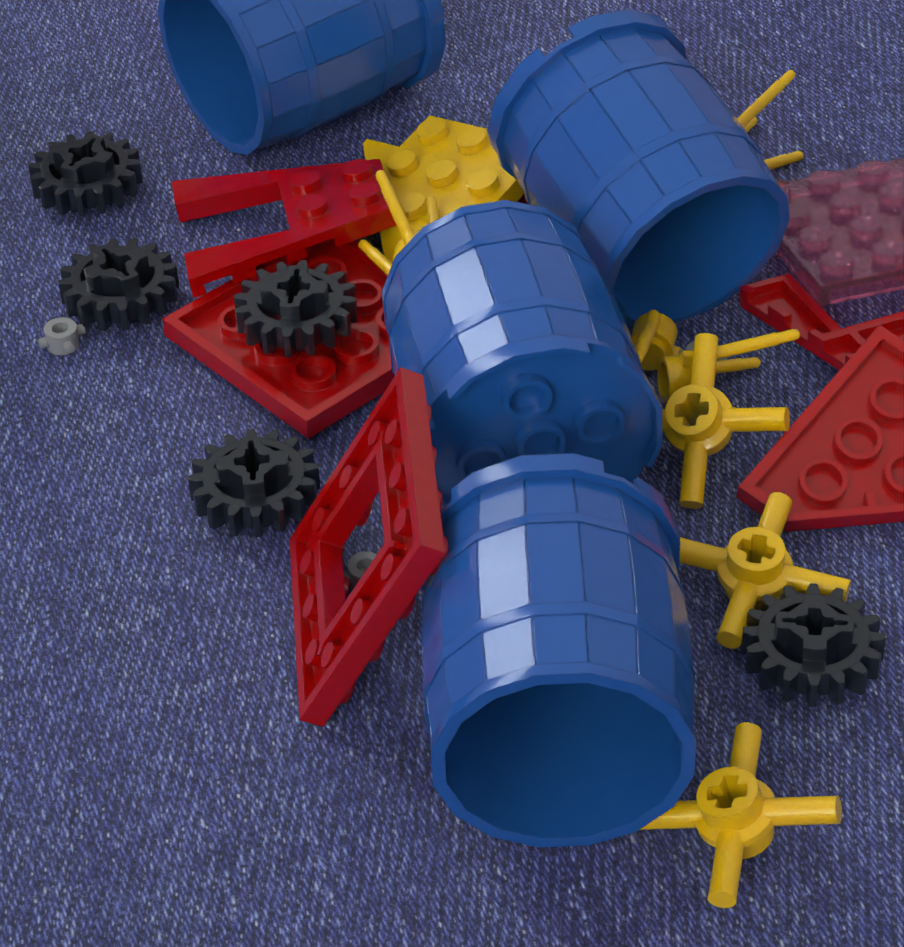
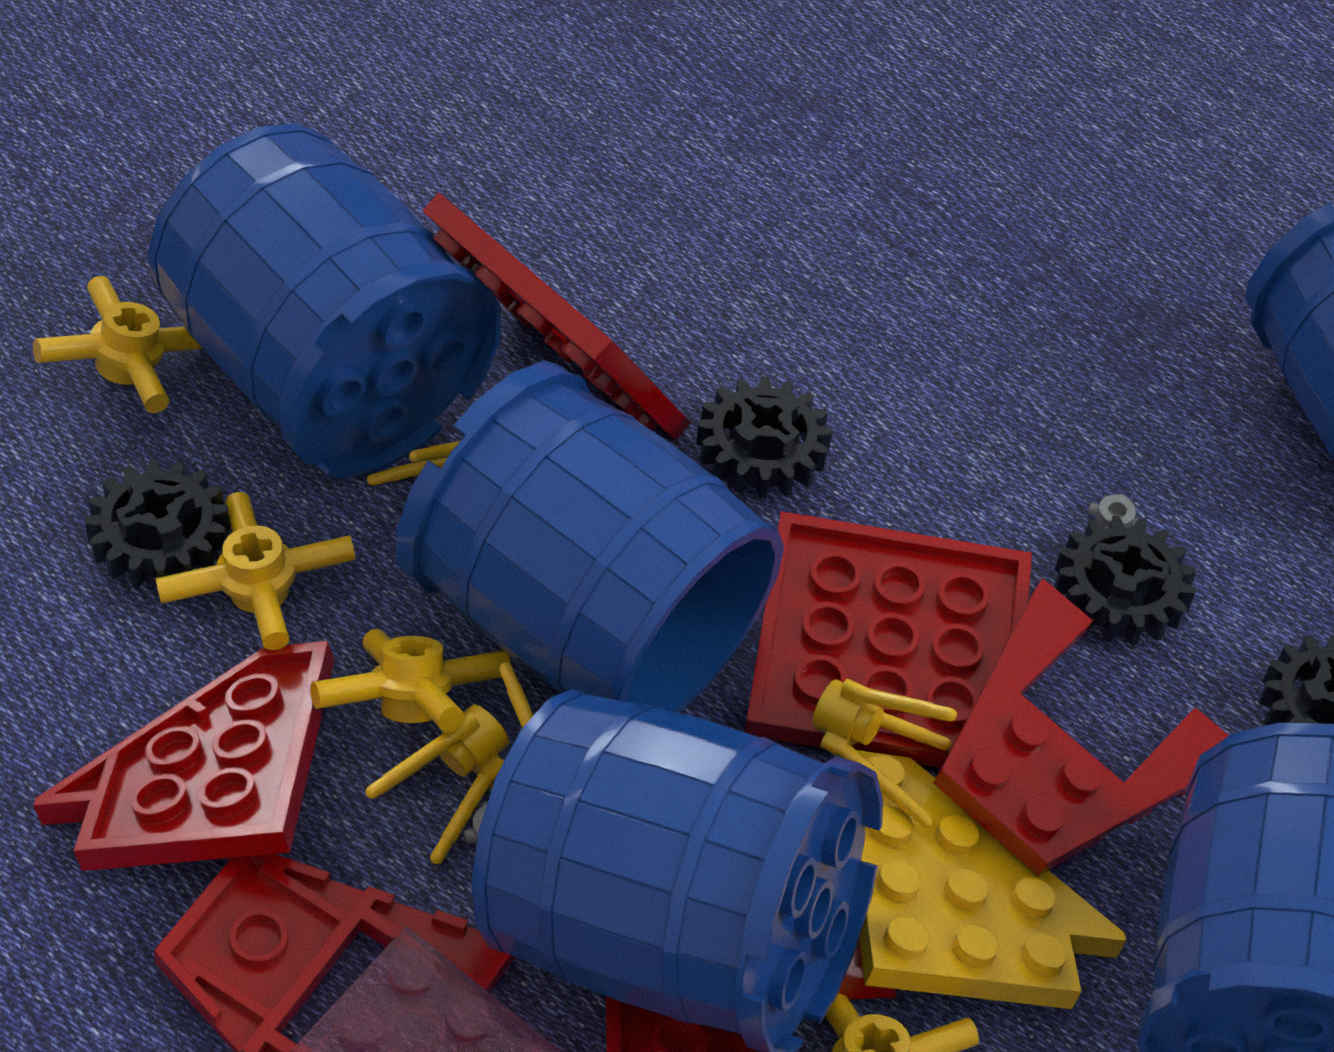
camera: 135 degrees right, 10 degrees up
(295, 308) = (900, 588): black gear -> none

